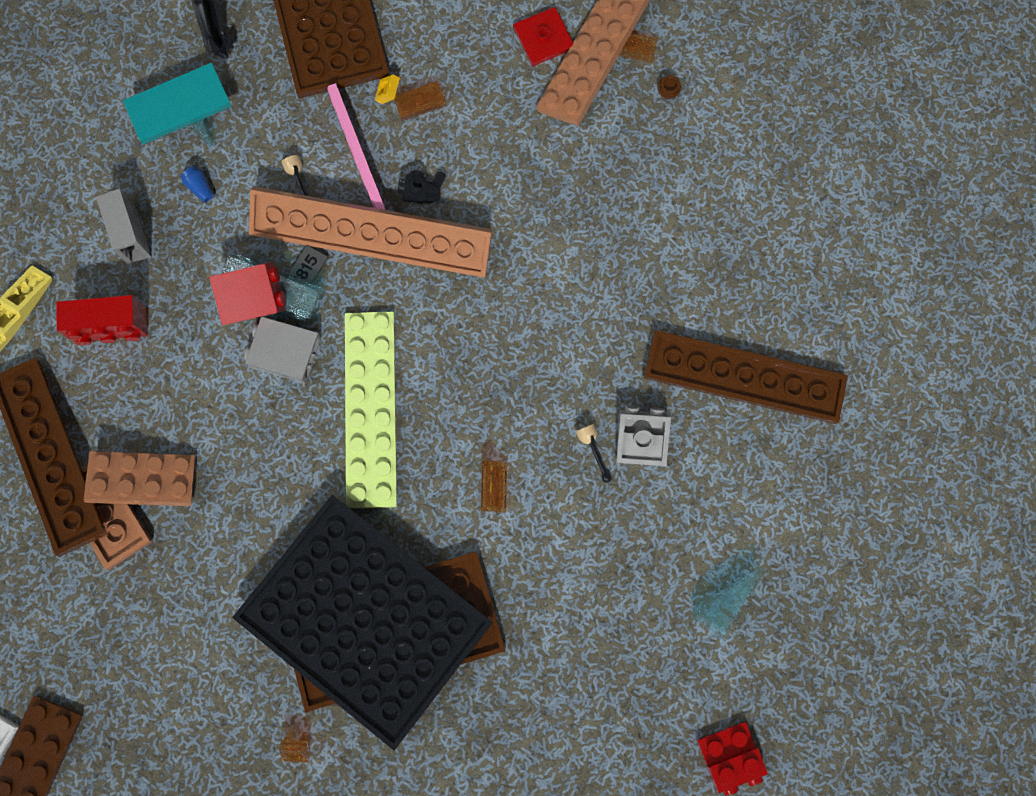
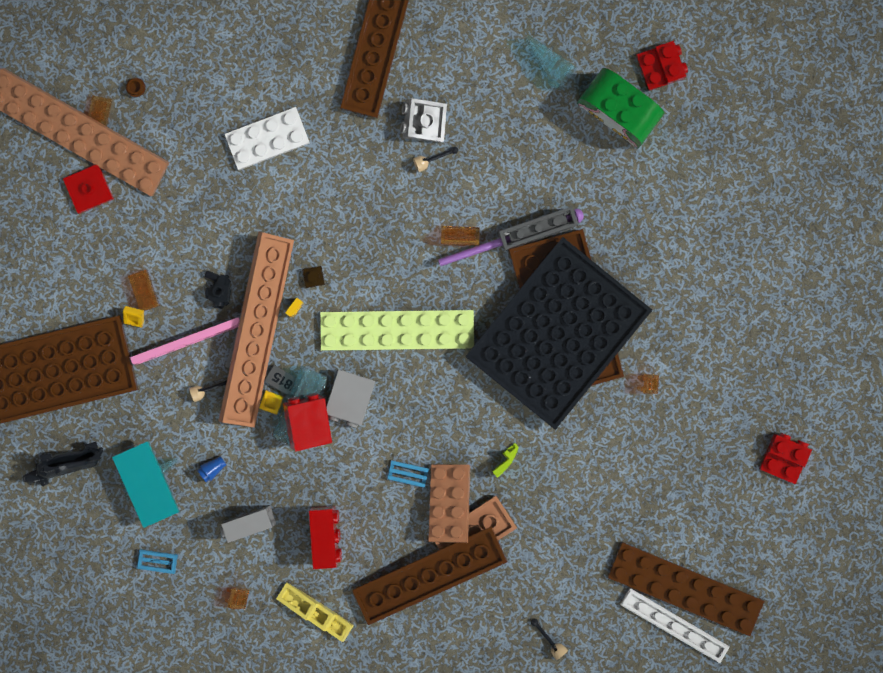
camera: 90 degrees left, 10 degrees up
(34, 218) = (238, 598): none -> clear orange tile
(74, 142) = (160, 554): none -> dark azure tile
(175, 423) = (398, 479): none -> dark azure tile
(203, 557) = (510, 454): none -> lime slope
(280, 254) = (271, 402): none -> yellow tile
(398, 279) = (294, 308): none -> yellow tile
(438, 303) = (313, 277): none -> dark brown plate
(497, 571) = (524, 233): none -> dark grey piece
(612, 243) = (267, 138): none -> white plate
(672, 701) = (621, 107): none -> green brick

